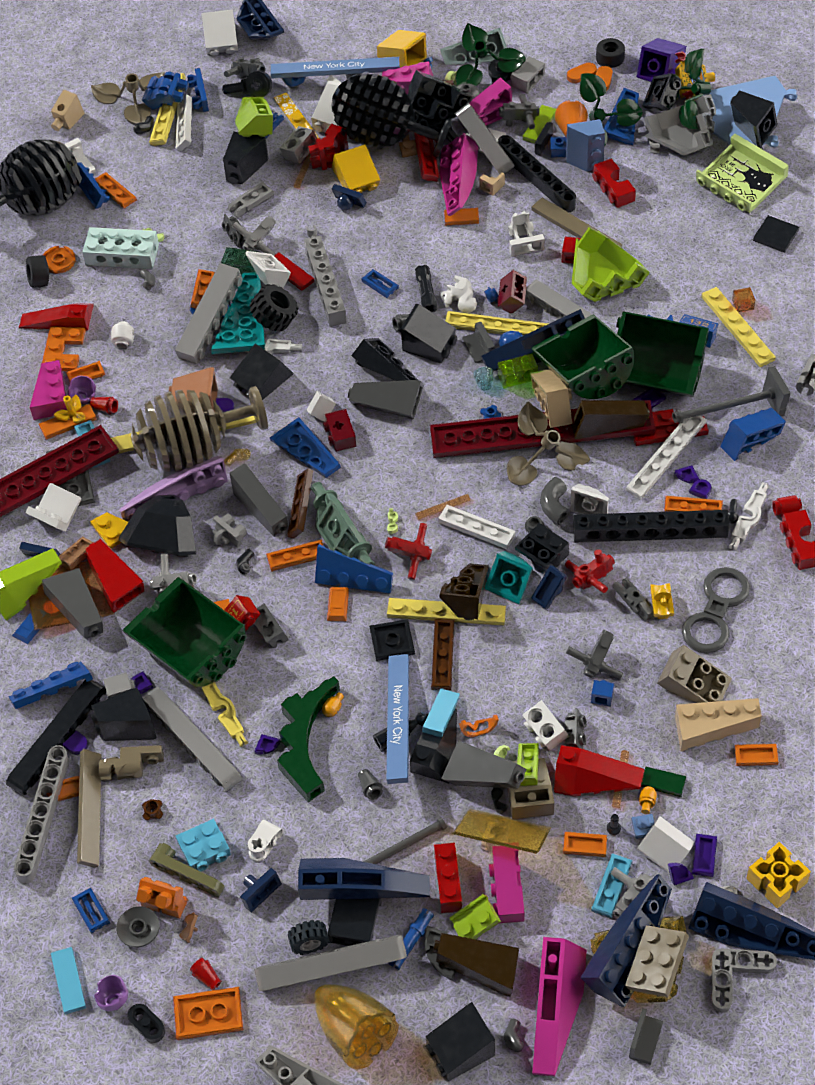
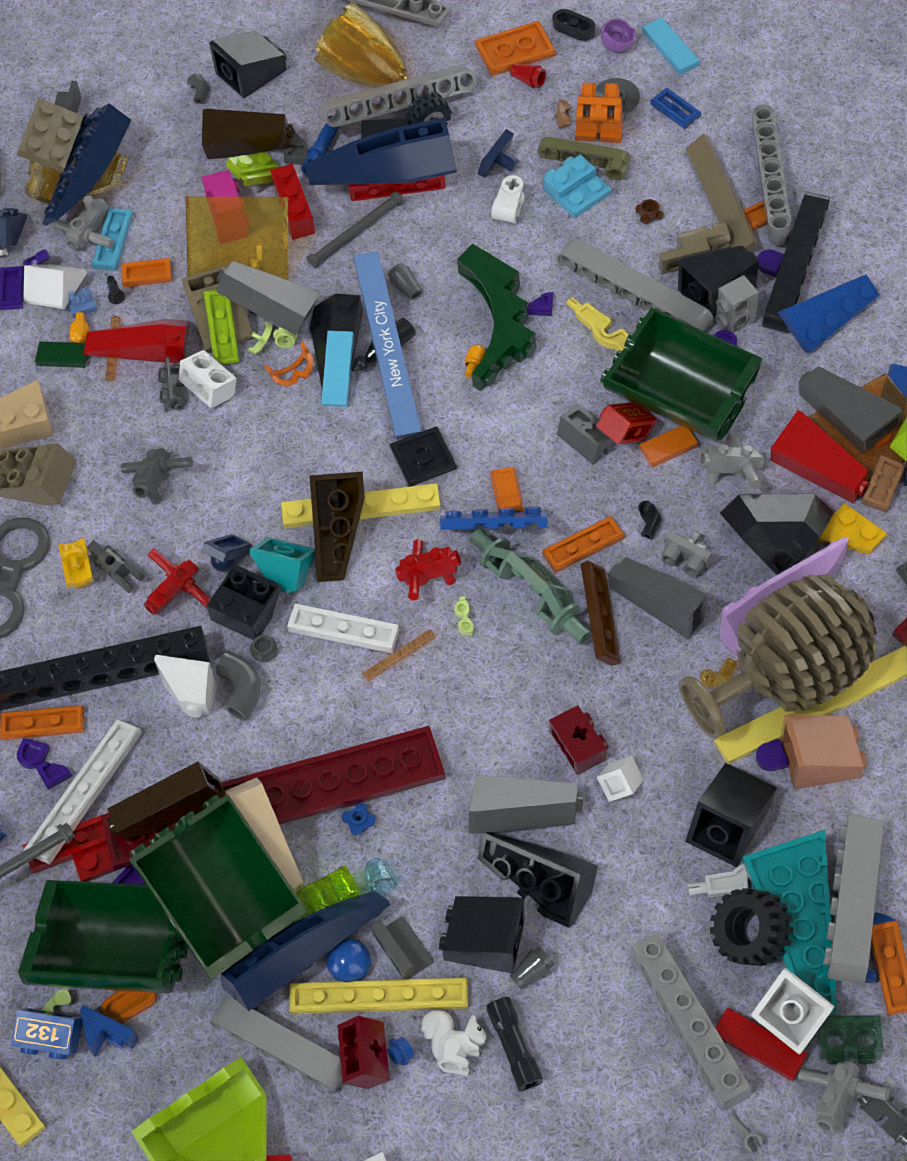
camera: 170 degrees right, 5 degrees up
(306, 447) = (630, 713): blue wing -> none
(378, 285) = (613, 1069): blue tile -> none
(442, 655) = (353, 443): reddish brown tile -> none
(534, 421) = (292, 729): dark tan plant -> none
(558, 1001) = (157, 123): dark pink wedge -> none
(602, 693) = (142, 433): blue plate -> none

